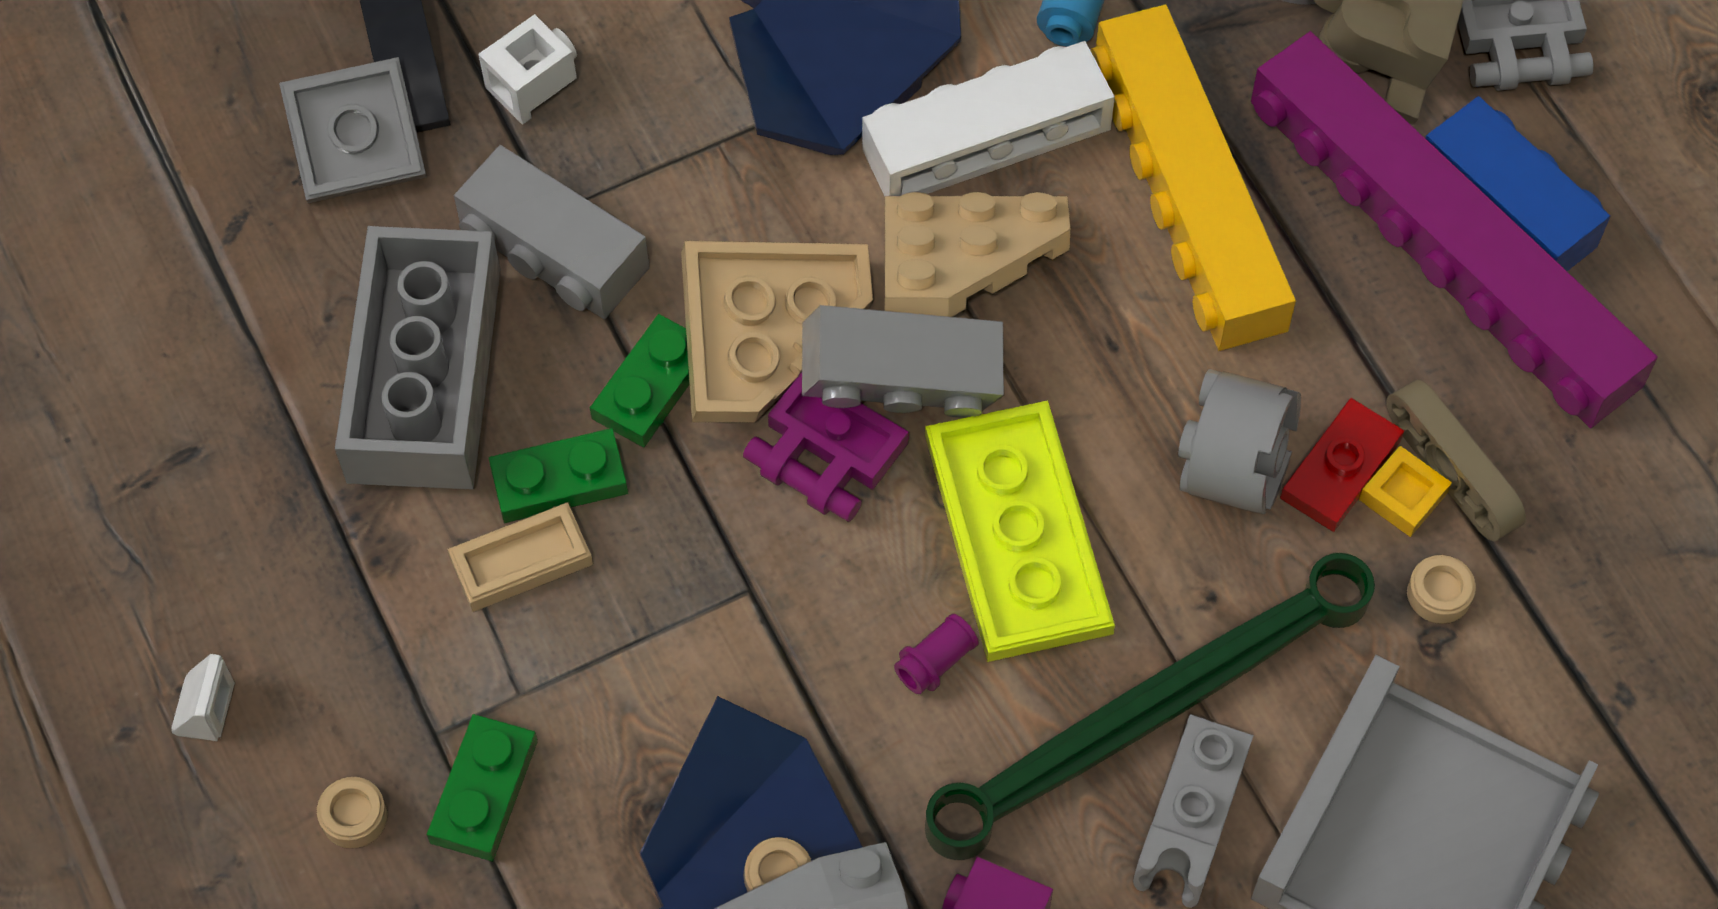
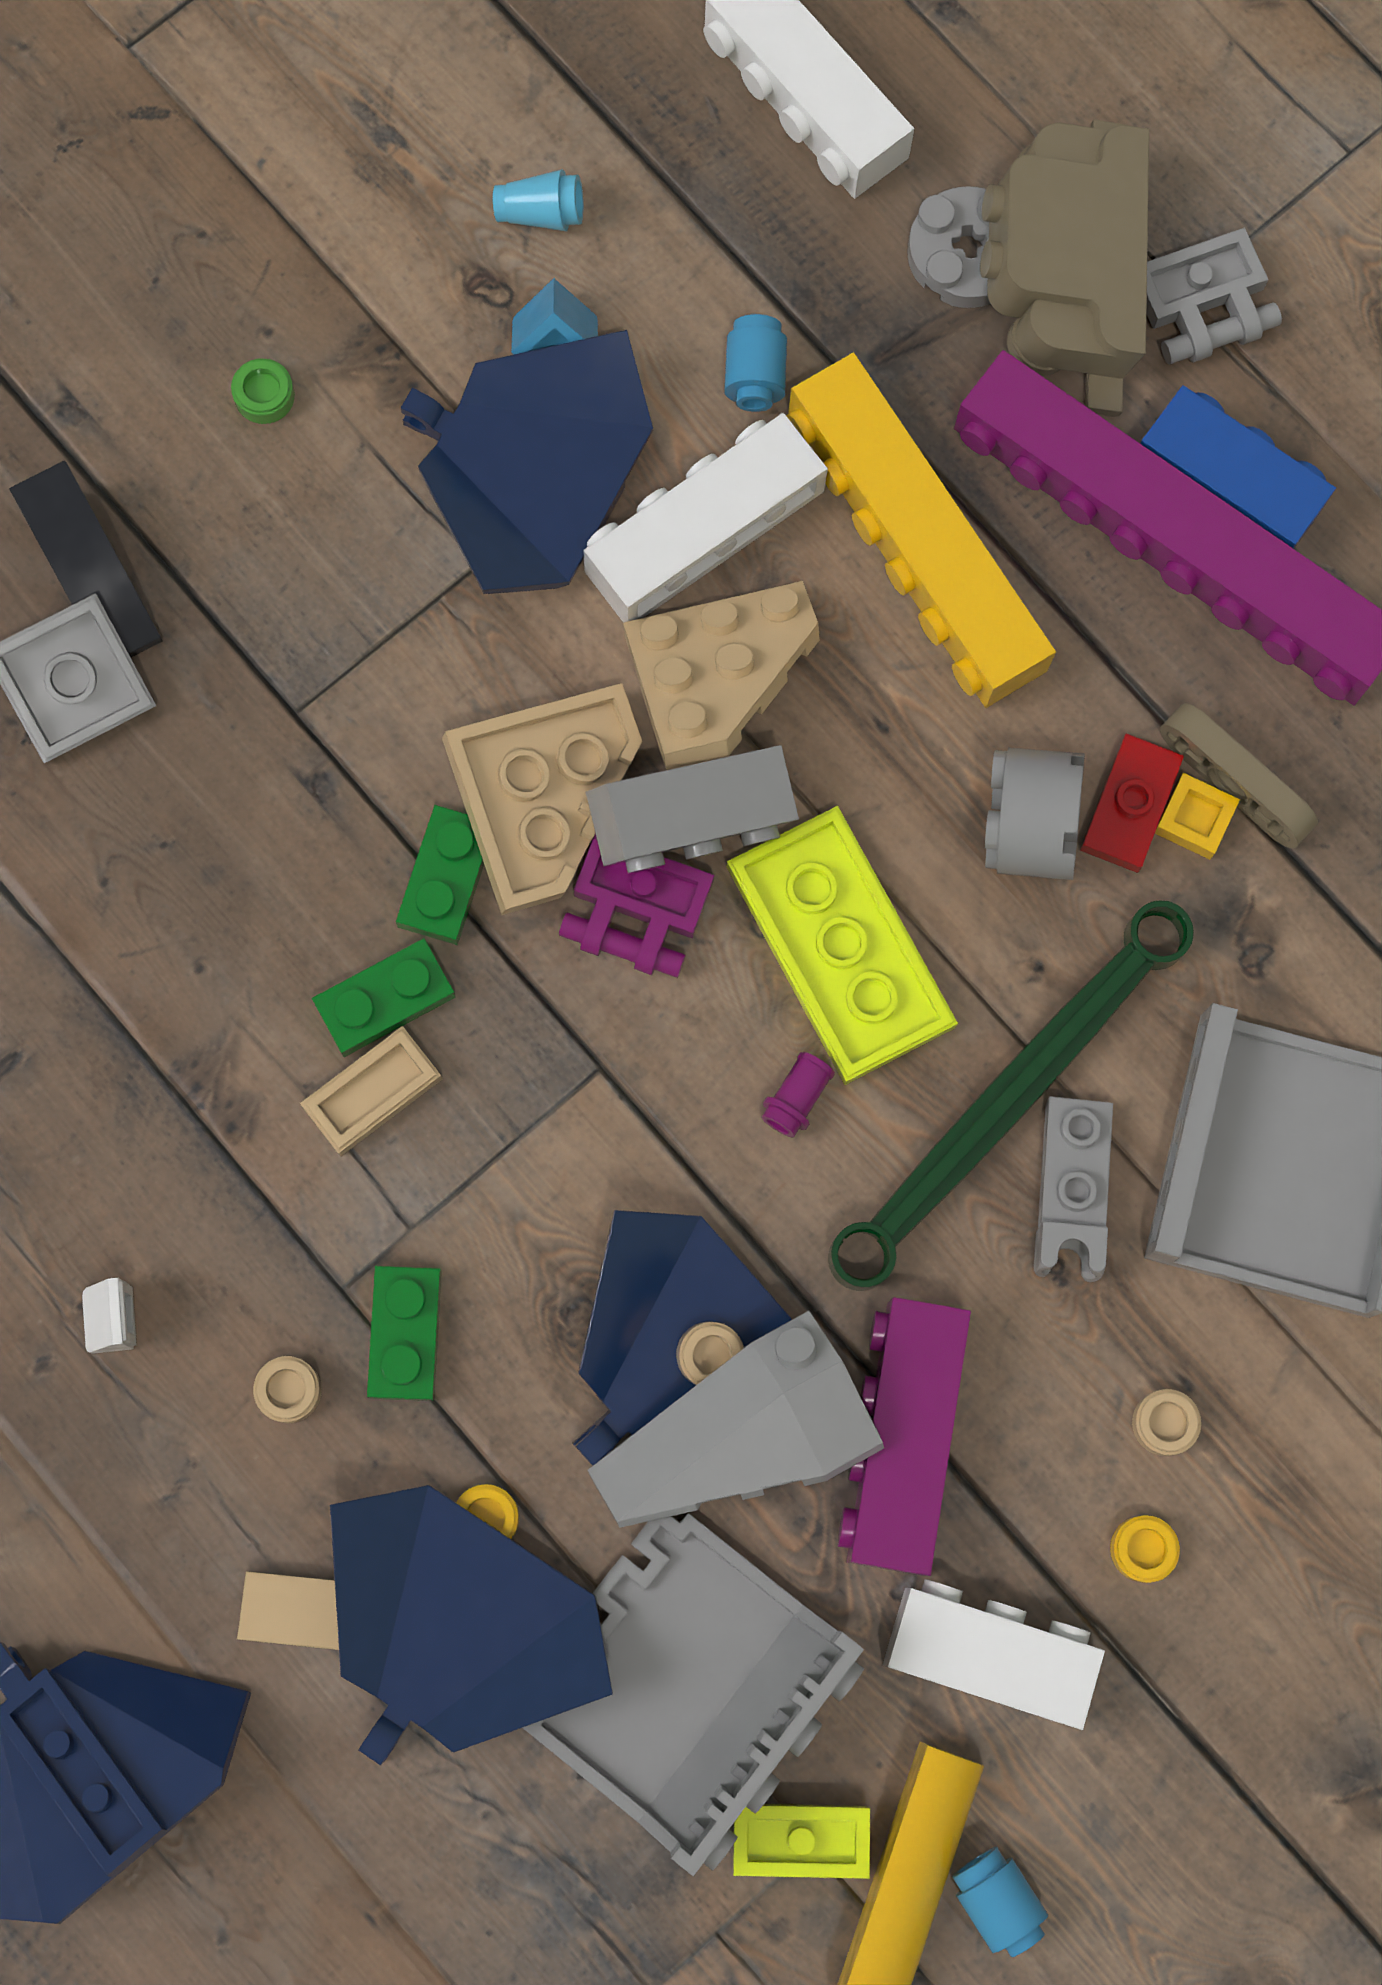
camera: 20 degrees left, 15 degrees up
(419, 358) = (214, 914): light grey brick -> none
(528, 66) = (217, 547): white brick -> none
(553, 232) = (302, 744): light grey brick -> none
(1441, 589) = (1251, 908): tan tile -> none

